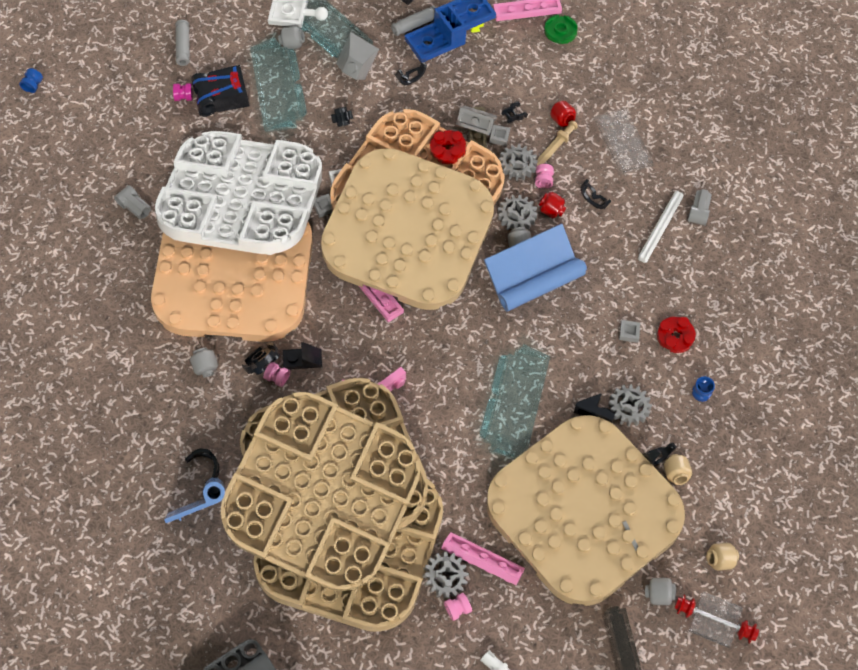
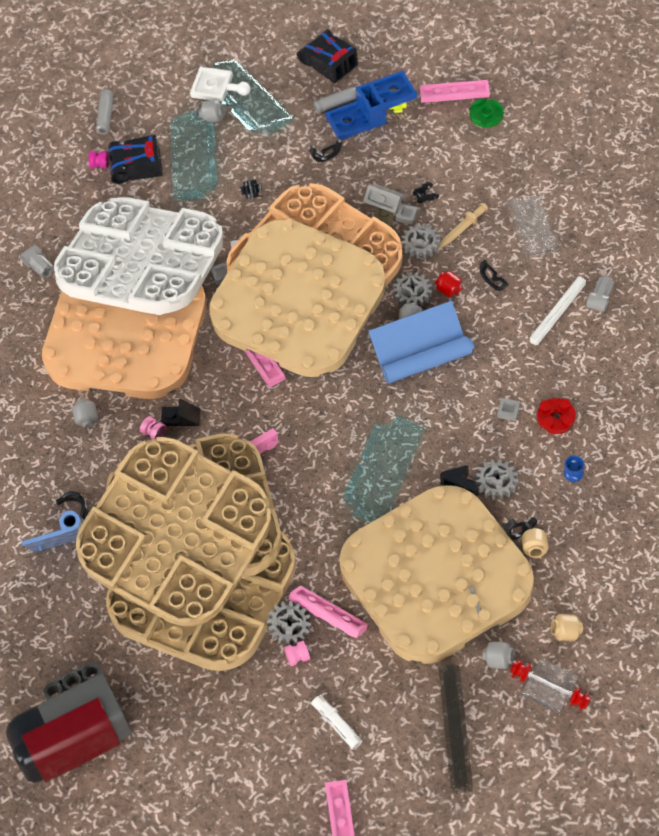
camera: 15 degrees right, 5 degrees down
(260, 358) = (134, 415): black plate -> none
(357, 57) = (273, 132): light grey slope -> none
(444, 138) = (343, 214): red plate -> none
(544, 176) = (445, 255): bright pink wheel -> none
(563, 113) = (473, 195): red head -> none

